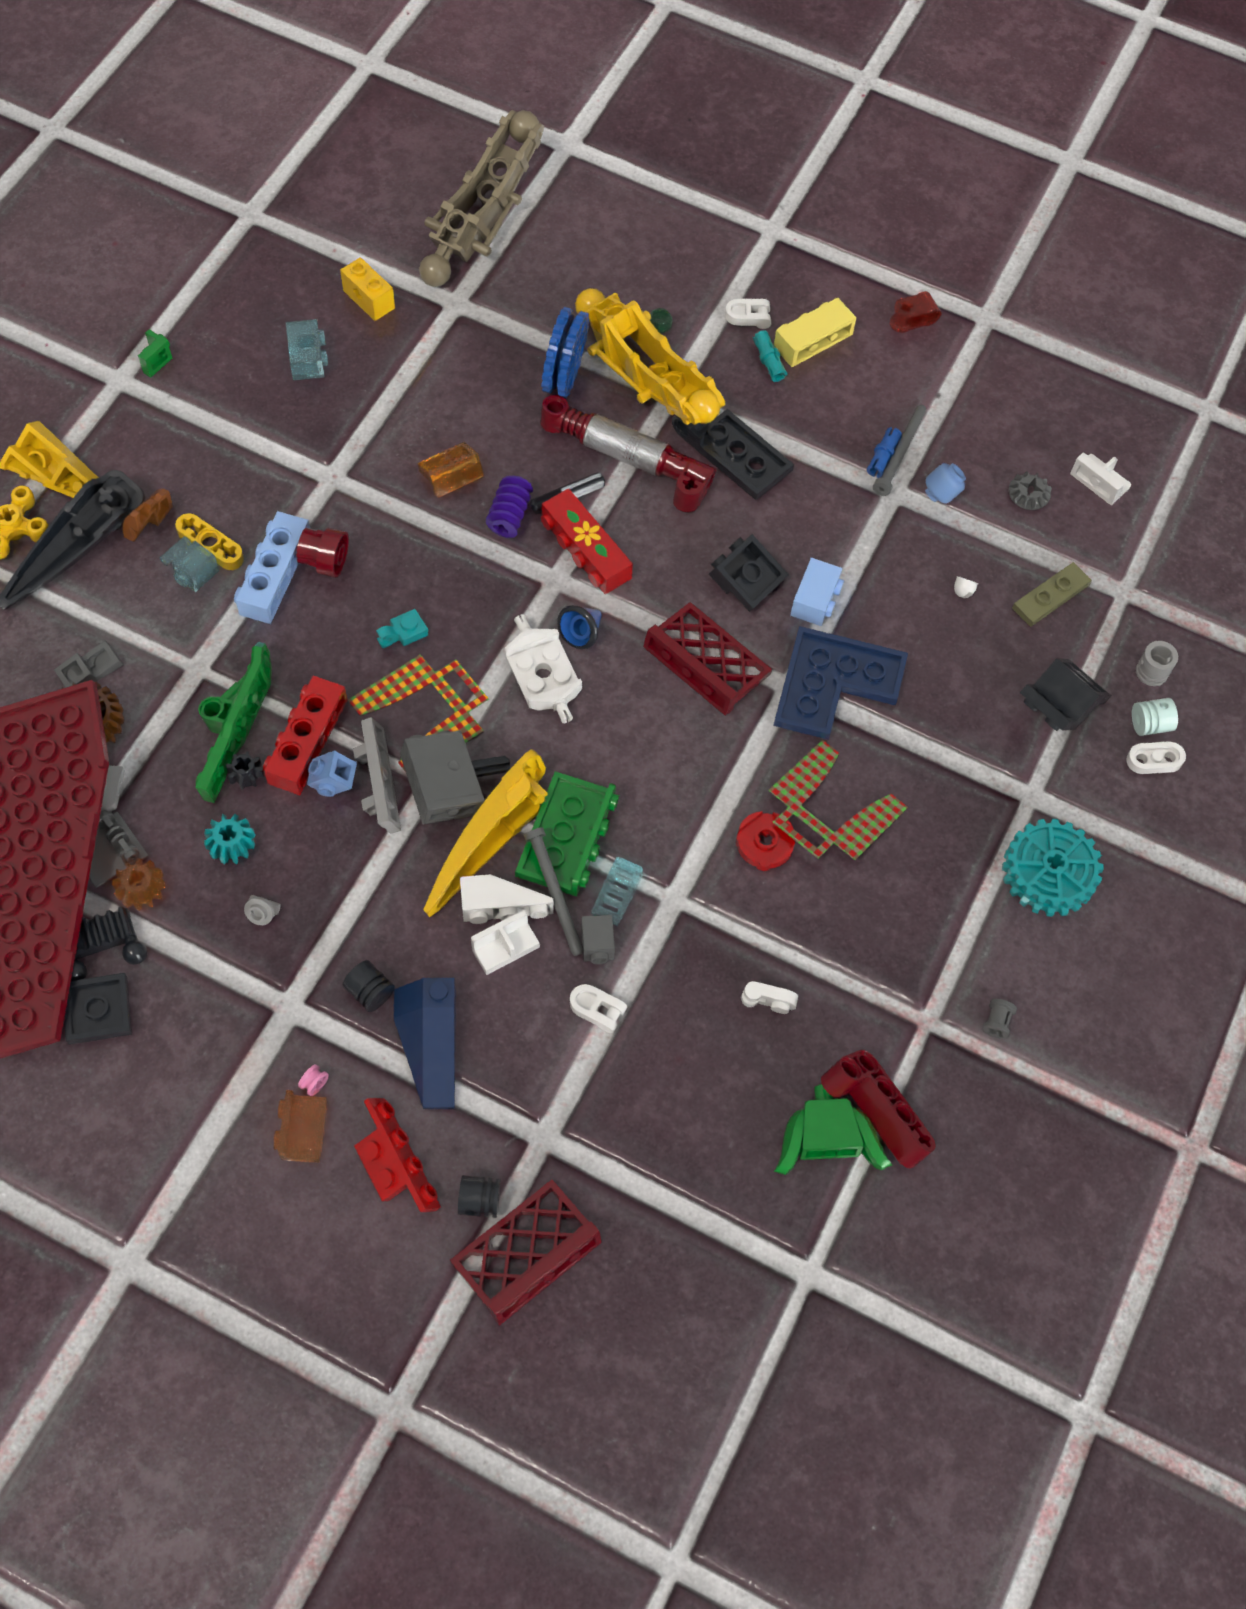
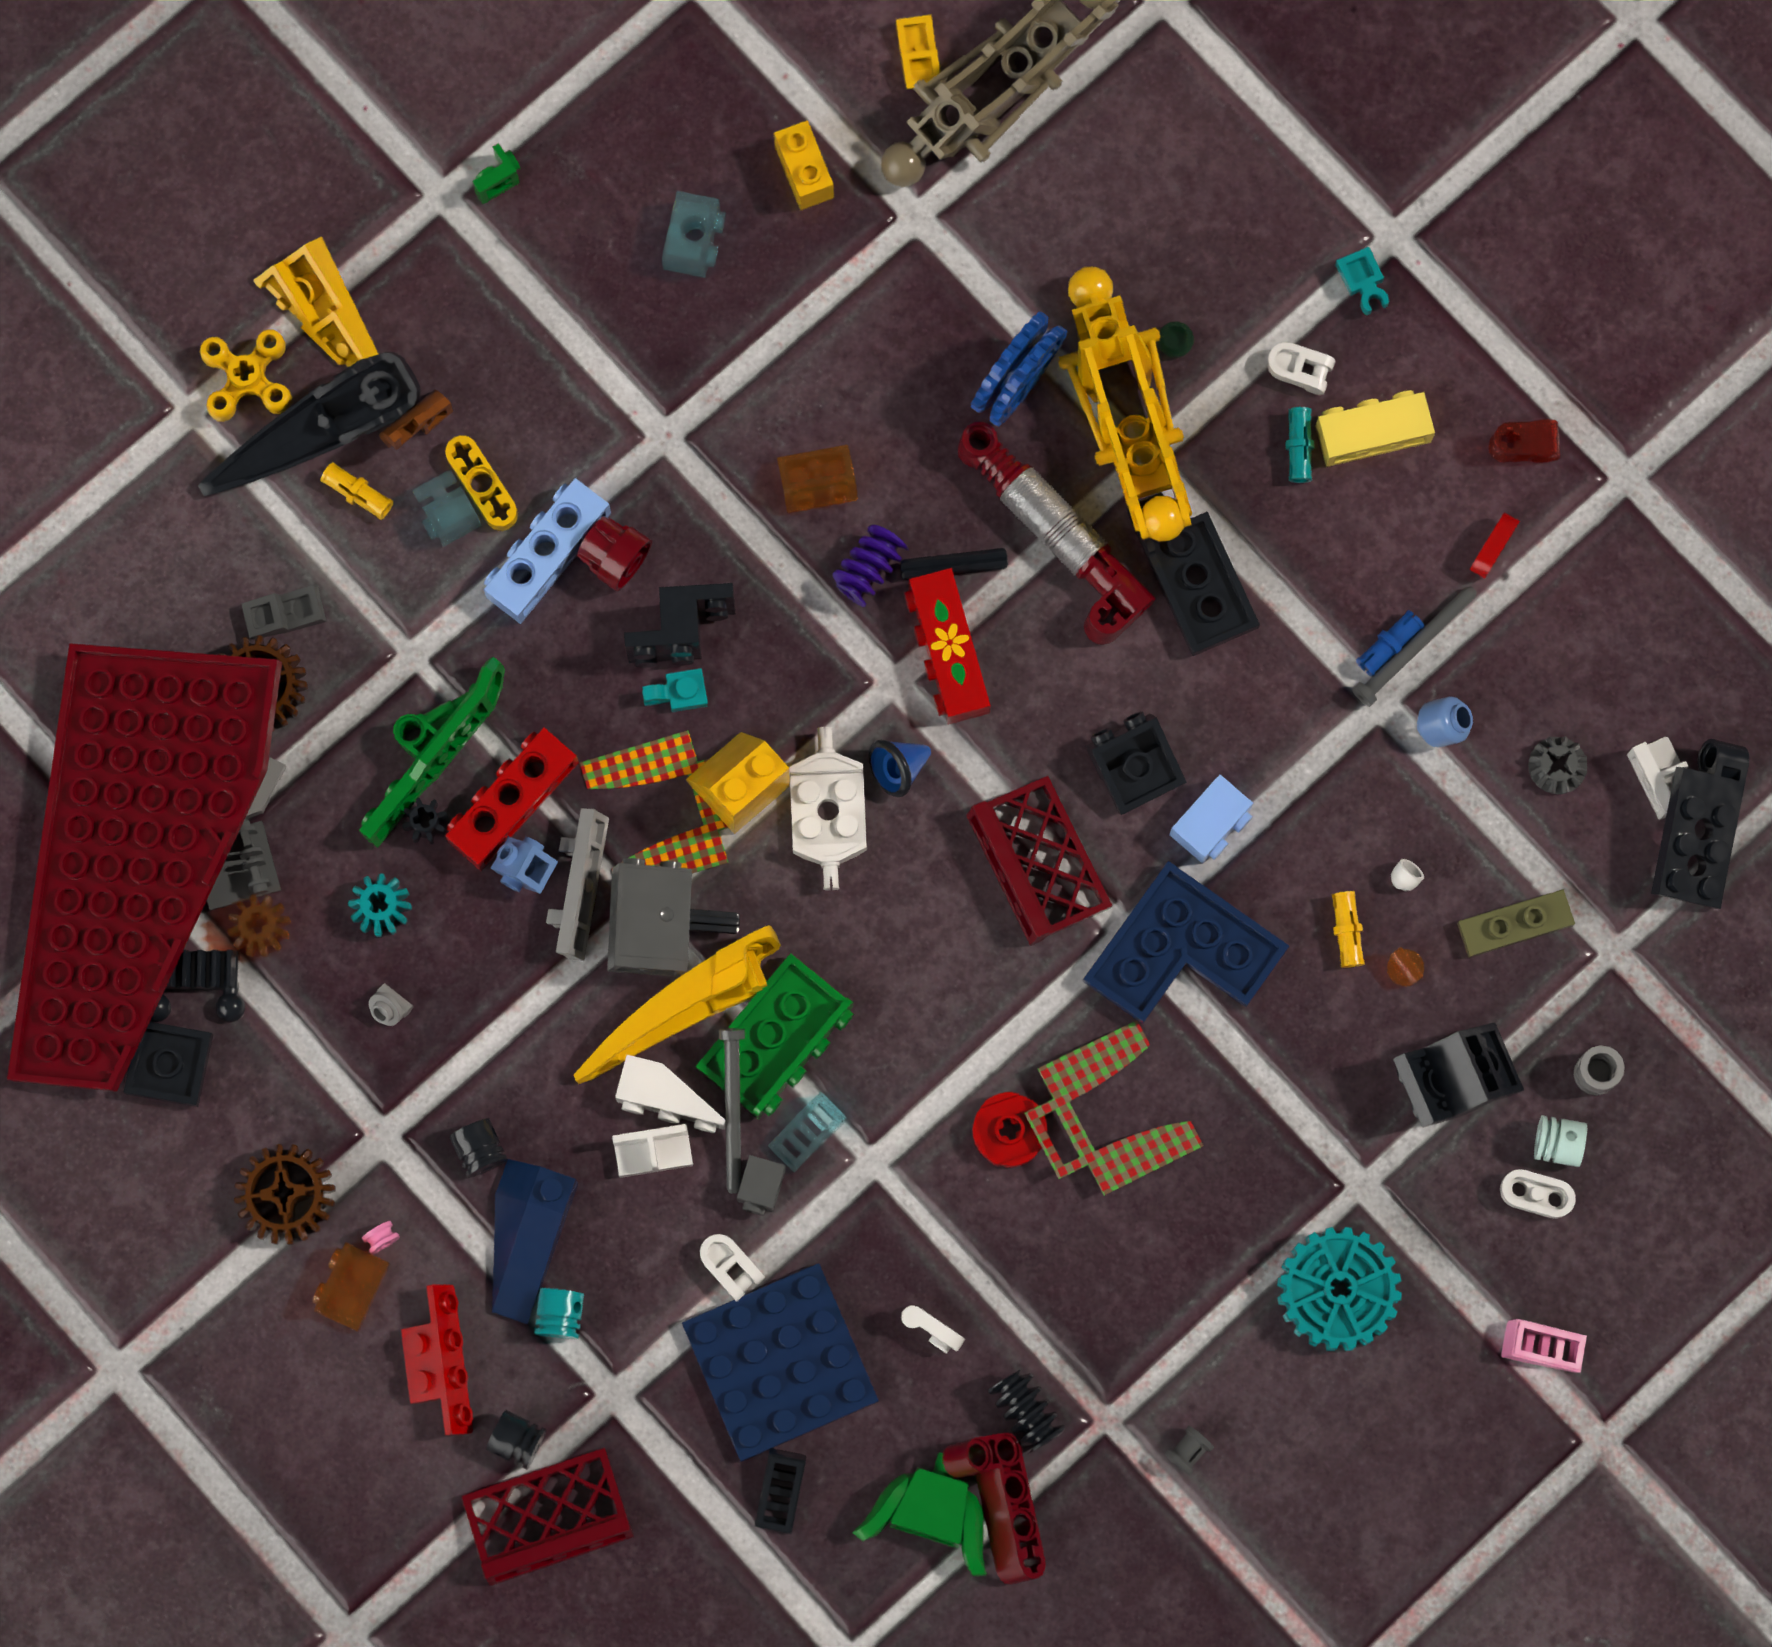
camera: 25 degrees right, 15 degrees up
(101, 569) = (356, 491): none -> yellow pin
(212, 1079) = (269, 1197): none -> reddish brown gear
(389, 575) = (680, 624): none -> black bracket
(416, 208) = (917, 49): none -> yellow slope
(475, 666) = (741, 780): none -> yellow slope
(477, 1087) = (559, 1313): none -> teal piece
(663, 1066) = (780, 1362): none -> dark blue plate
(713, 1149) = (787, 1458): none -> black slope
(764, 252) = (1362, 275): none -> teal plate
(867, 1031) = (1026, 1410): none -> black piece
(924, 375) = (1494, 545): none -> red beam
(942, 632) = (1348, 929): none -> yellow pin
(992, 644) = (1405, 967): none -> clear orange plate
(1147, 511) = (1716, 799): none -> black hinge
(1193, 862) = (1513, 1341): none -> bright pink slope

